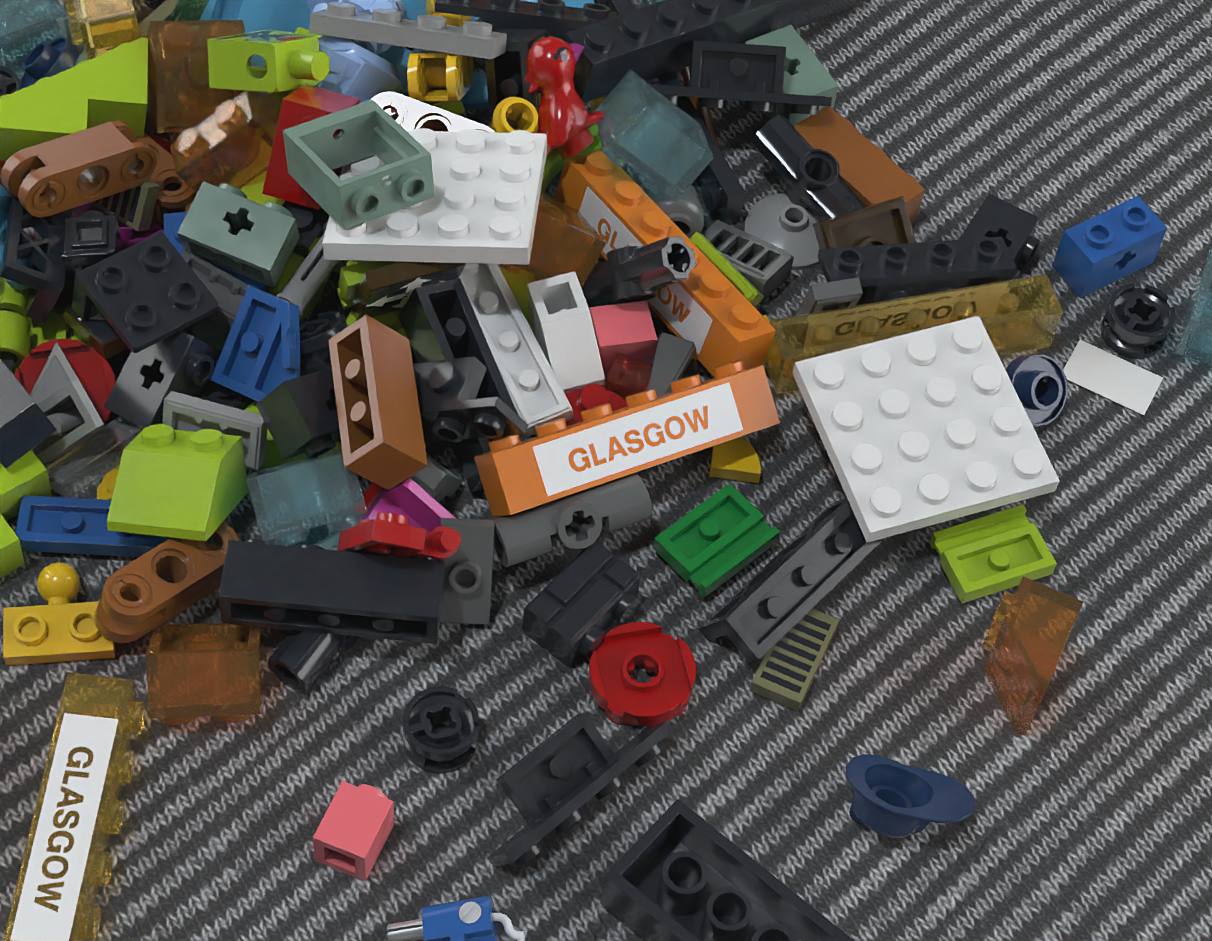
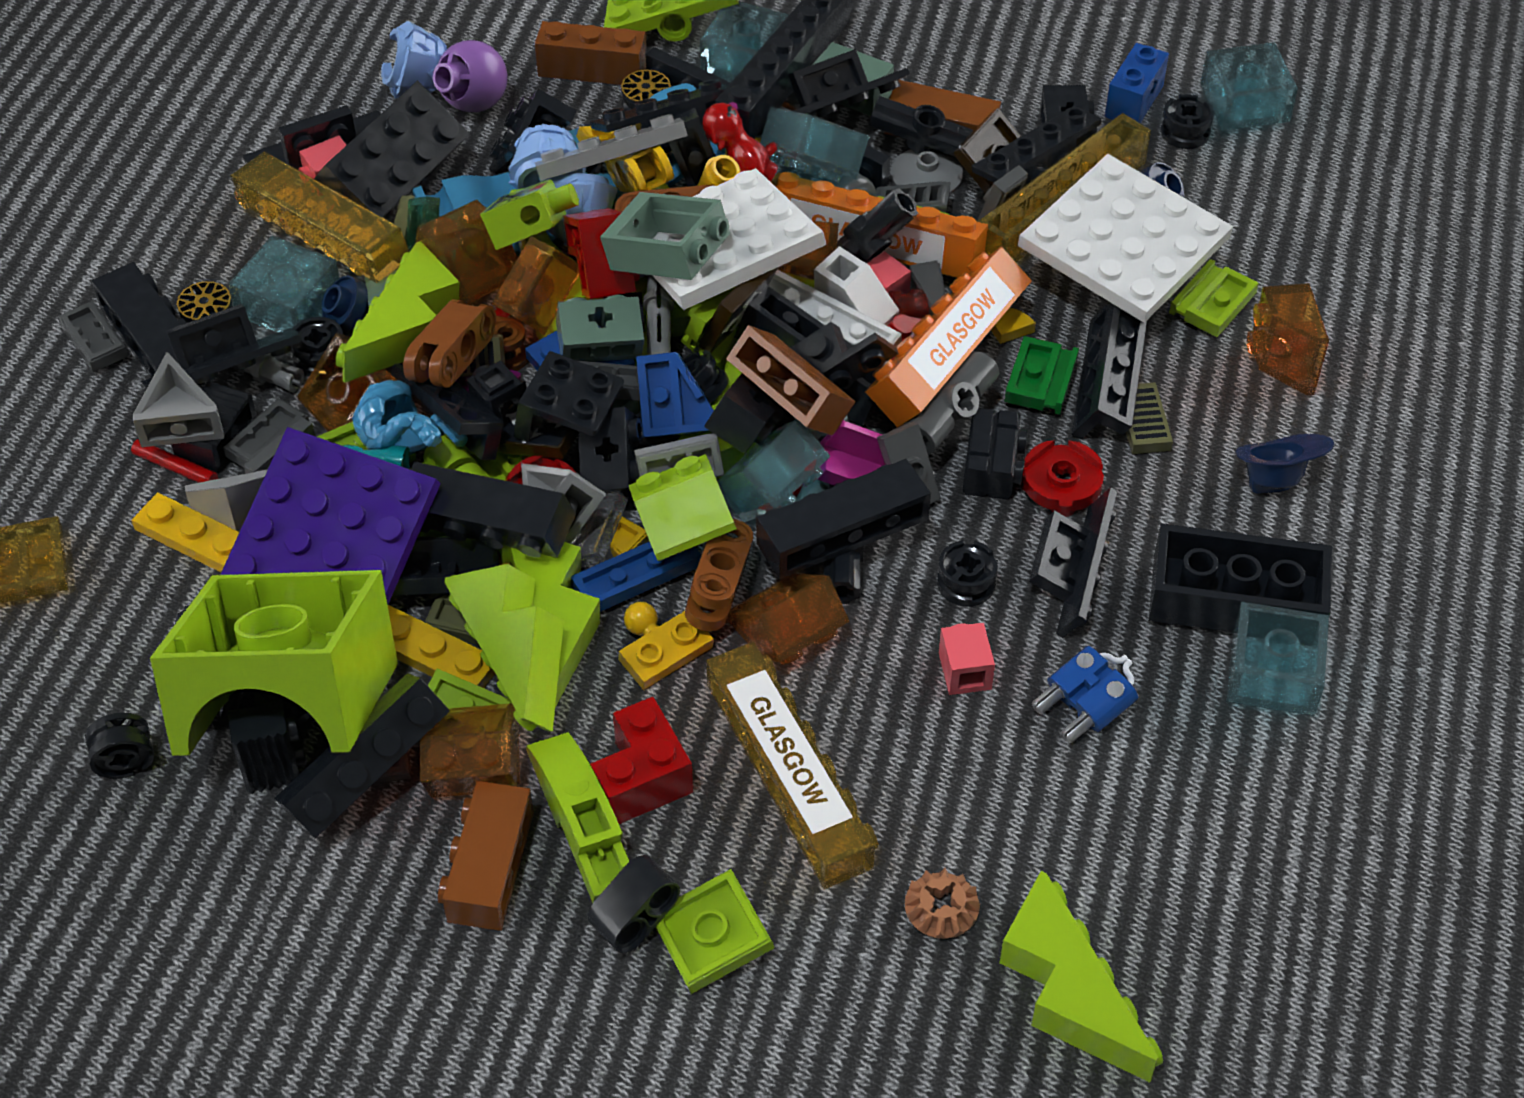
camera: 25 degrees left, 5 degrees down
(392, 536) = (867, 456): red plate -> none
(1112, 377) = (1197, 163): white sticker -> none

